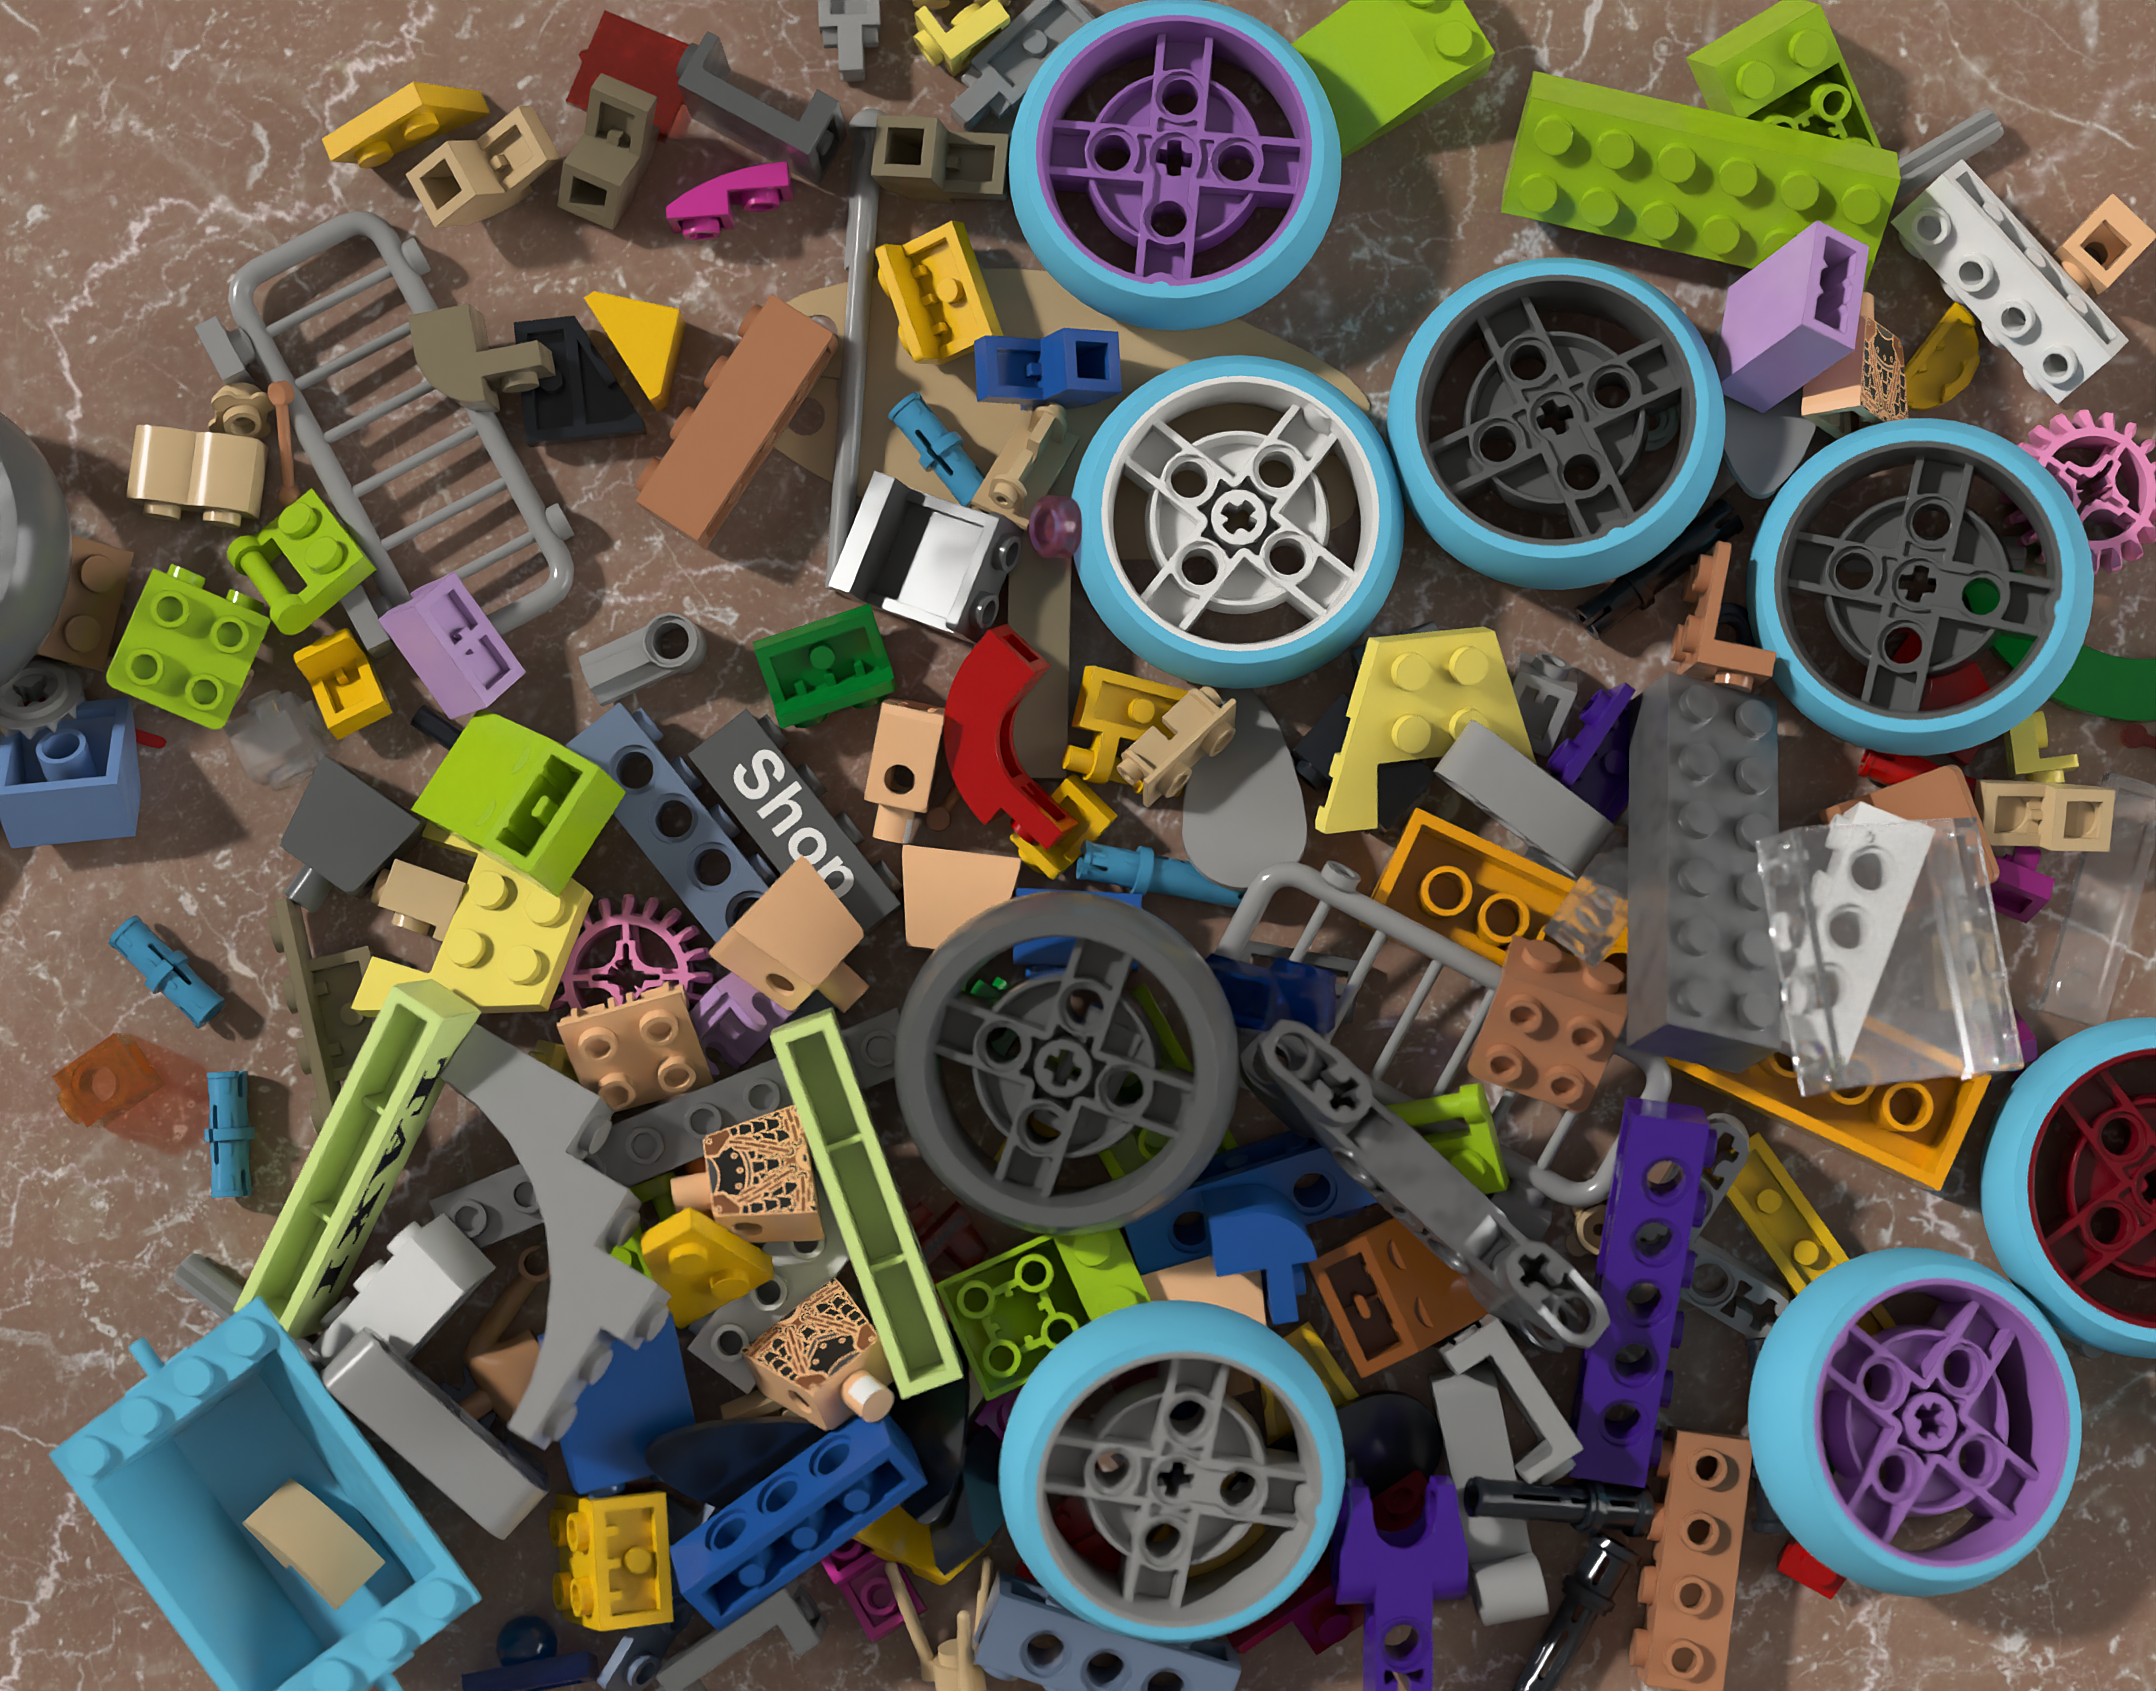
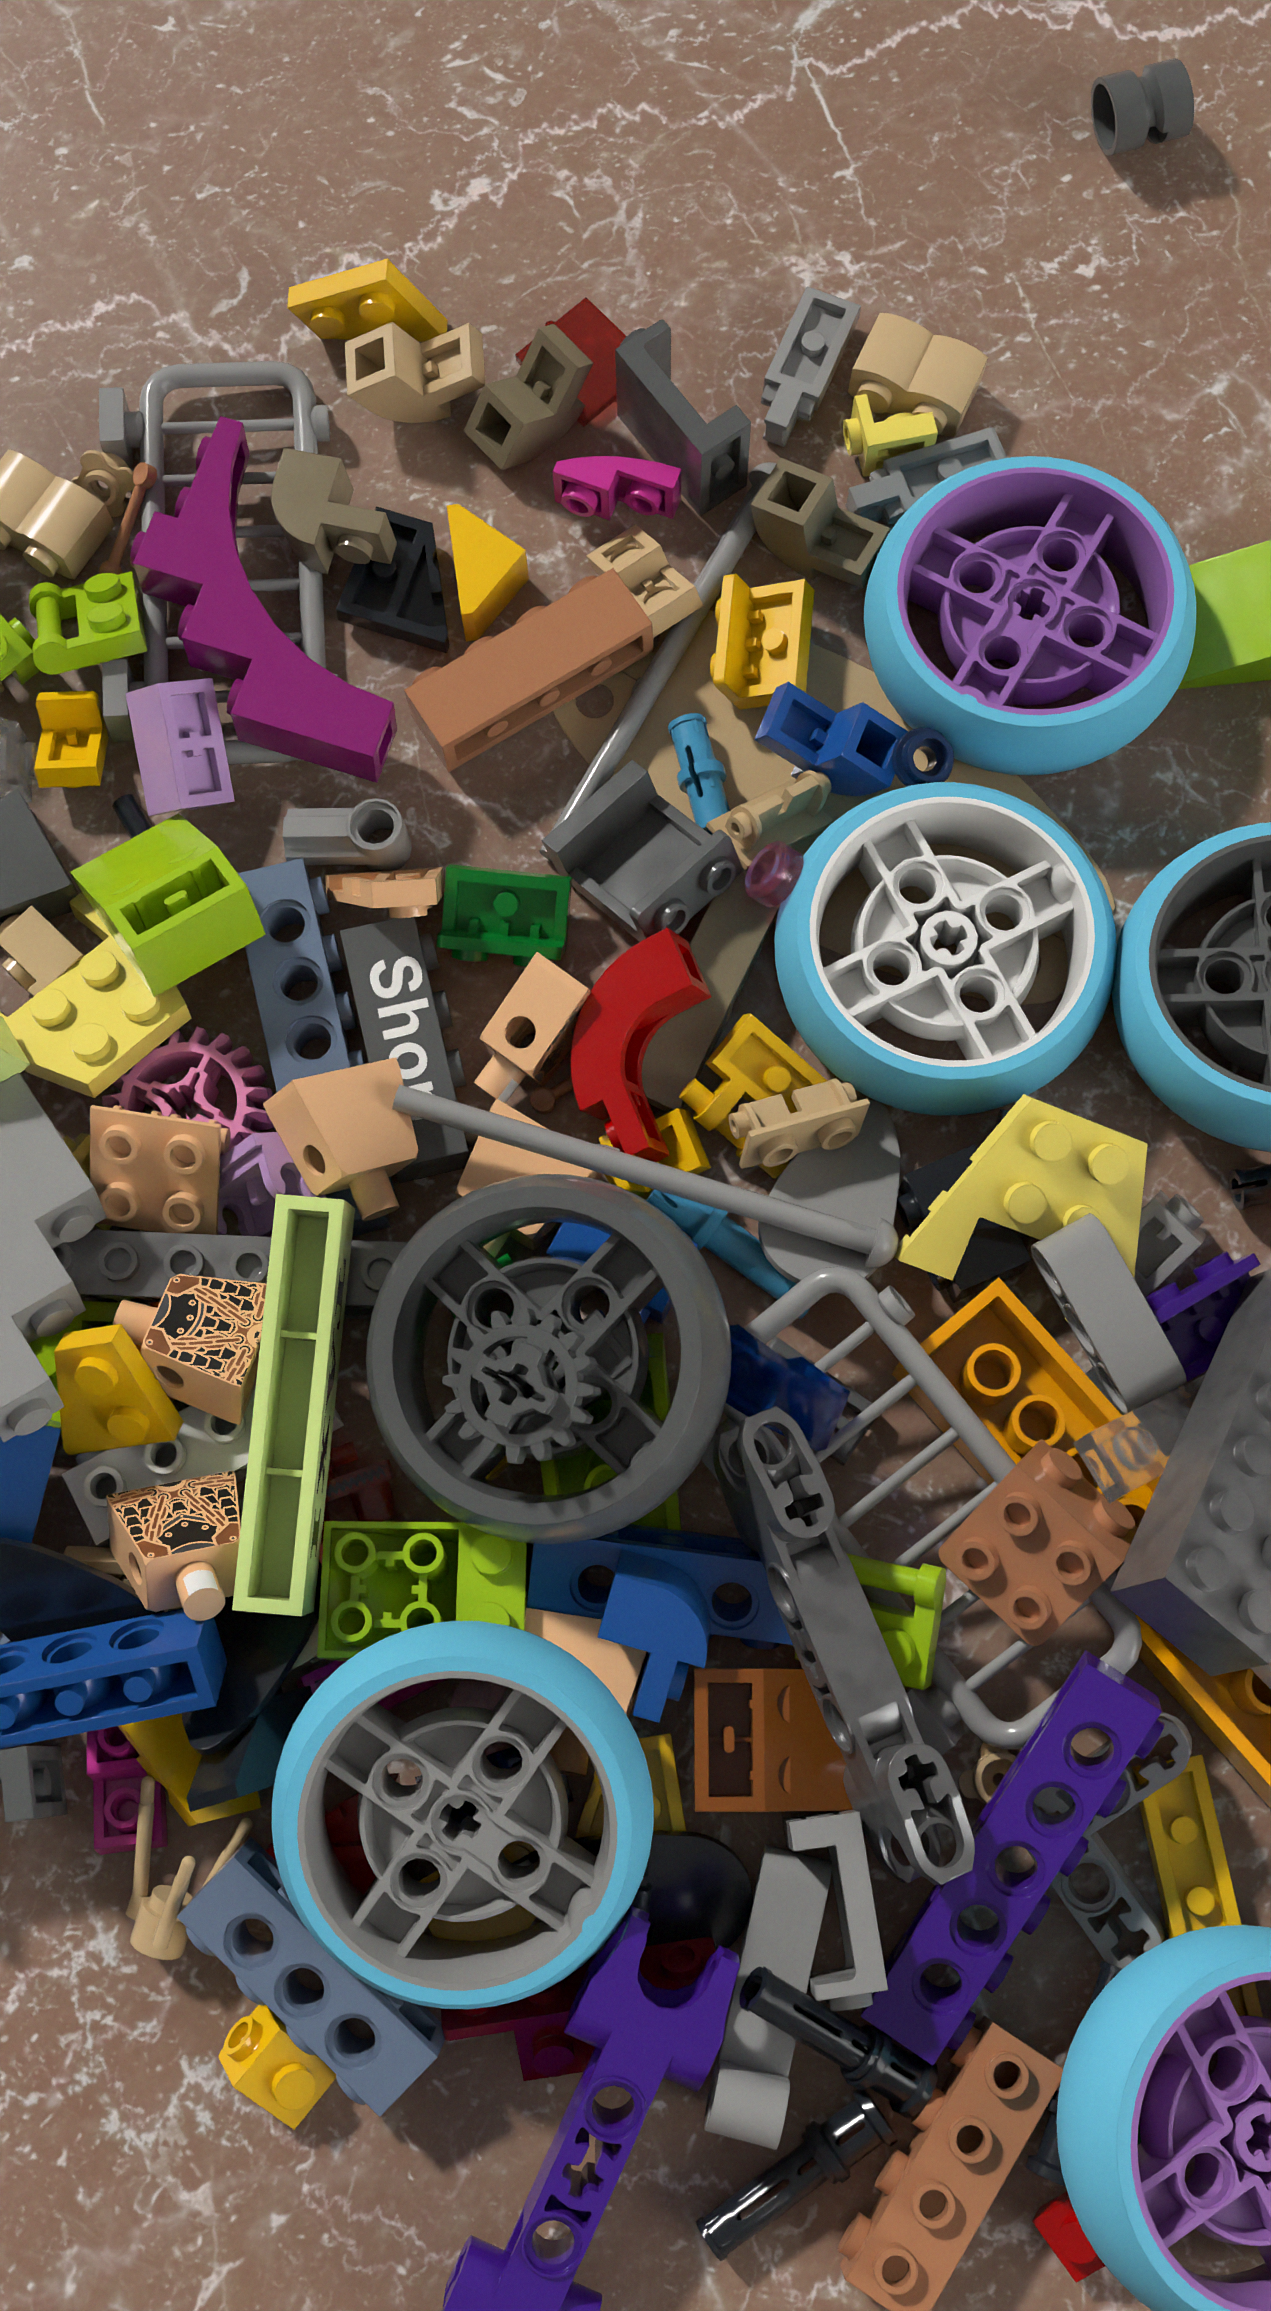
camera: 25 degrees right, 10 degrees down
(379, 462) = (278, 691): none -> magenta arch
(712, 694) = (402, 890): none -> light nougat wing
(800, 279) = (648, 576): none -> tan slope
(1034, 1108) = (507, 1410): none -> dark grey gear
(1154, 344) = (938, 753): none -> dark blue plate
(1297, 824) = (878, 1242): none -> light grey bar

